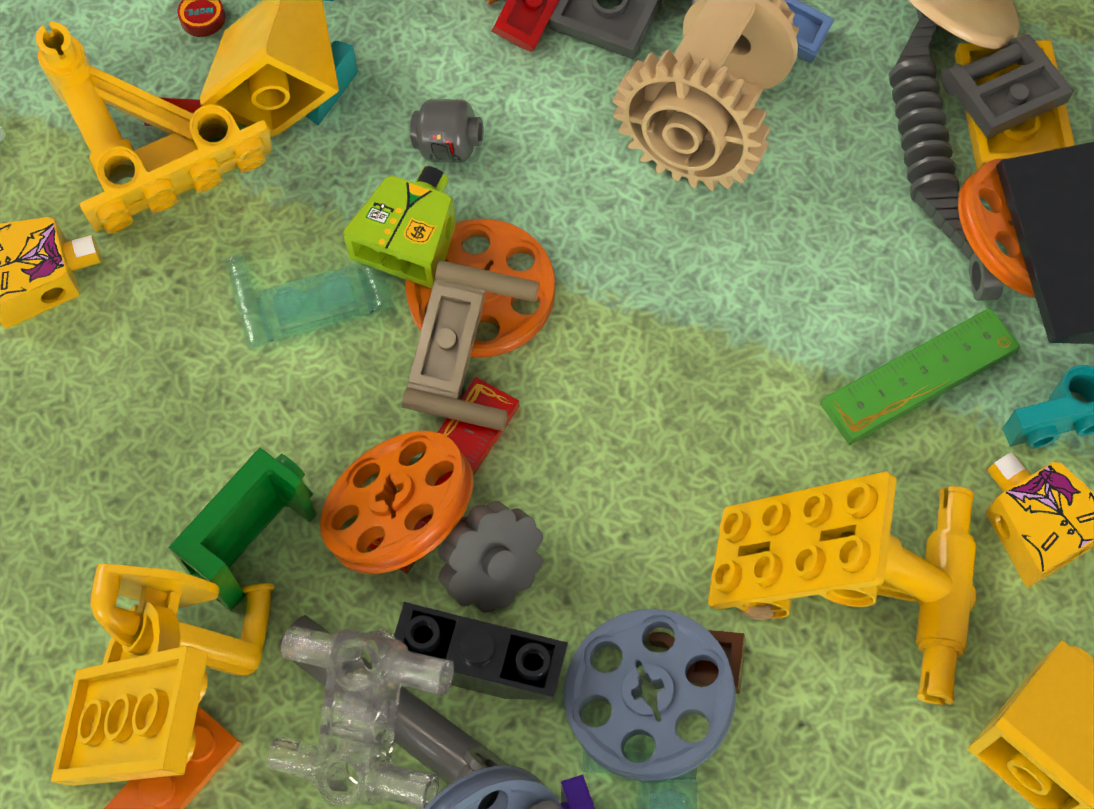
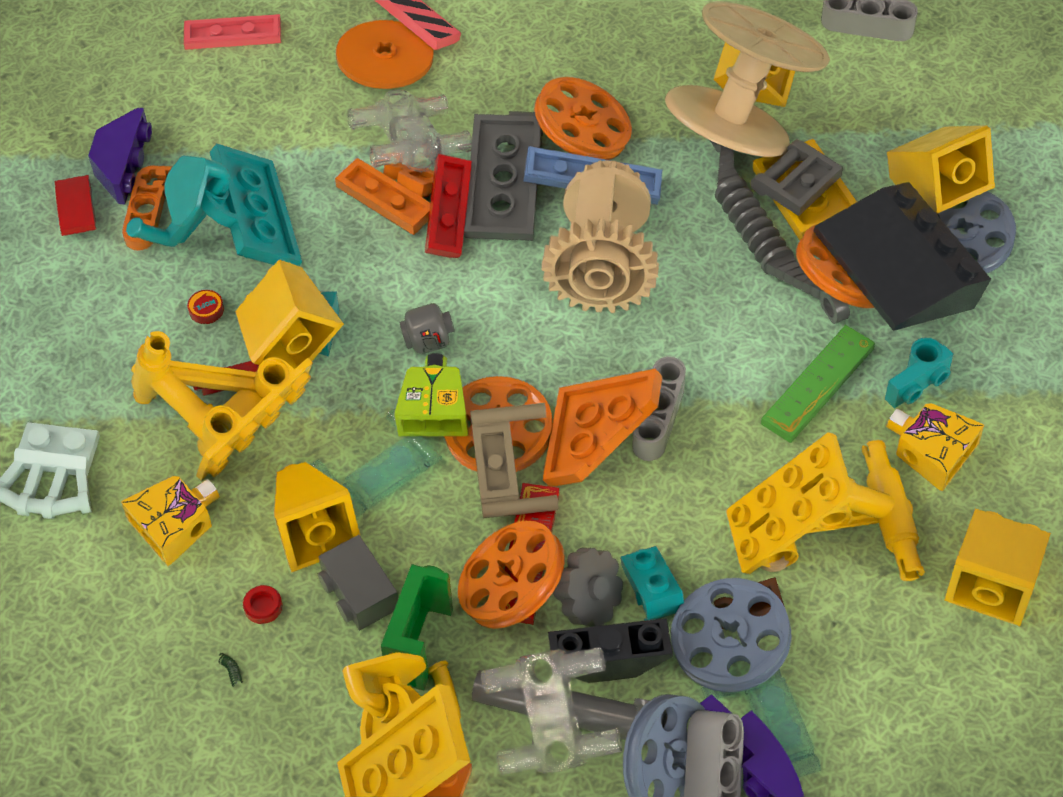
camera: 20 degrees left, 10 degrees down
(12, 490) = (235, 667): none -> dark green leg
(88, 421) = (262, 604): none -> red tile
(185, 329) = (311, 514): none -> yellow slope
(207, 433) = (358, 582): none -> dark grey brick
(579, 577) = (652, 583): none -> teal plate
(601, 327) = (595, 420): none -> orange plate
(696, 318) = (661, 422): none -> light grey beam

